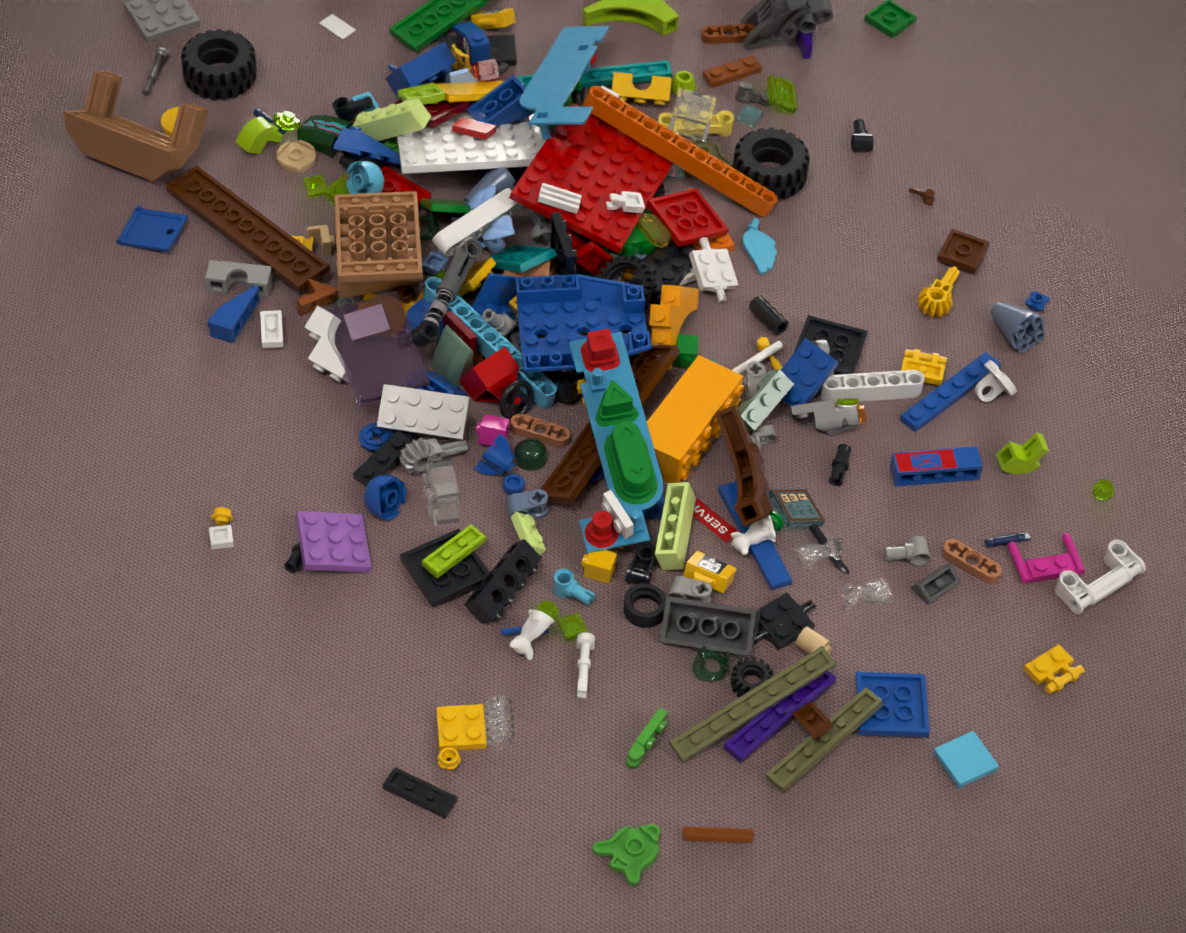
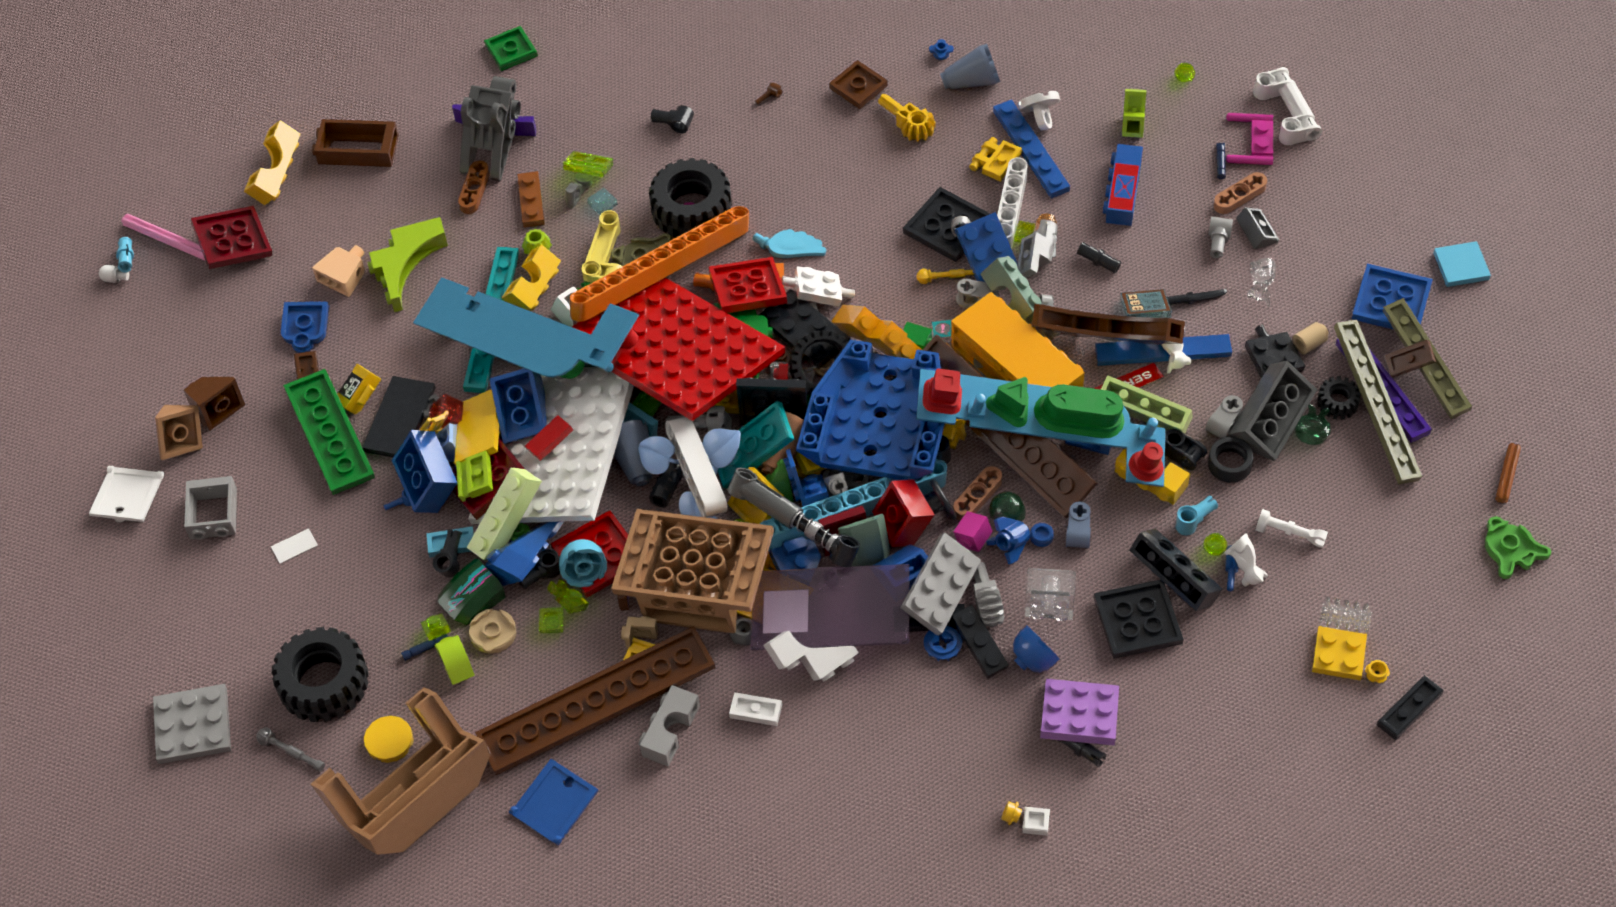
camera: 65 degrees left, 5 degrees up
(233, 315) = (729, 746): blue slope -> none
(319, 295) = (726, 652): dark orange slope -> none
(448, 206) = (641, 495): green tile -> none
(454, 551) = (1126, 603): lime tile -> none
(473, 41) = (392, 412): blue slope -> none
(527, 530) = (1105, 535): yellowish green plate -> none
(559, 198) = (711, 372): white tile -> none
(571, 626) = (1239, 525): clear neon green plate -> none
(621, 520) = (1137, 439): white plate -> none
(628, 201) = (729, 319): white plate -> none
(646, 738) = (1391, 499): bright green hinge -> none
(654, 230) = (760, 315): clear yellow tile -> none
(692, 114) = (603, 241): clear brick -> none
(710, 570) = (1206, 395): yellow piece -> none
(759, 357) = (946, 287): white piece -> none
(768, 315) = (889, 260): black axle -> none
(813, 552) = (1207, 304): clear animal -> none
(1049, 665) = (1371, 172): yellow plate -> none

